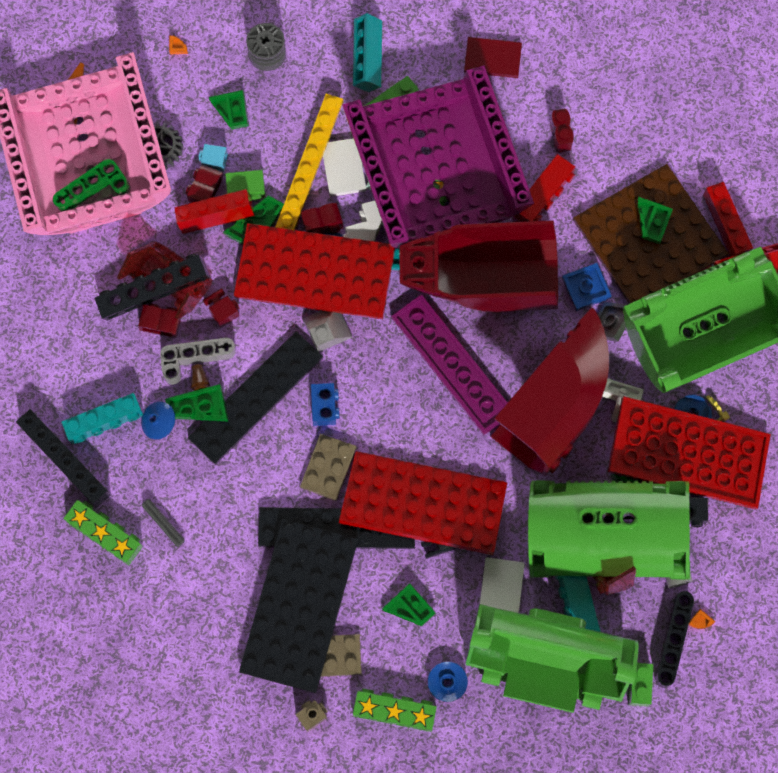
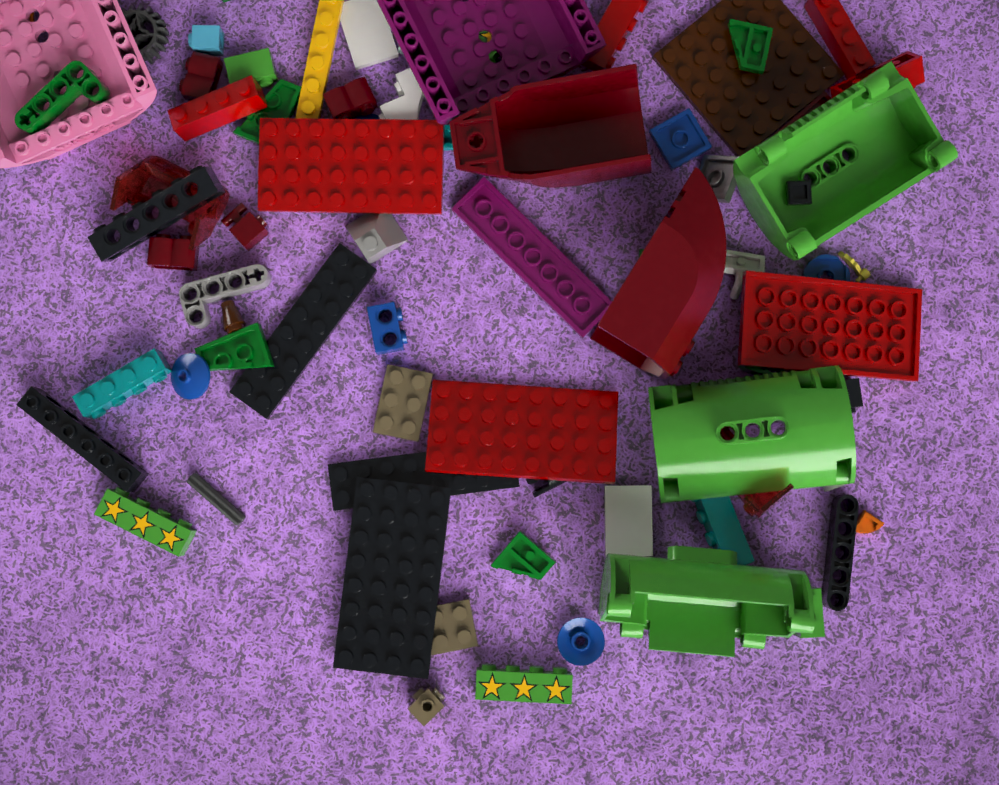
camera: 10 degrees left, 10 degrees up
(677, 341) = (798, 192): none -> black tile

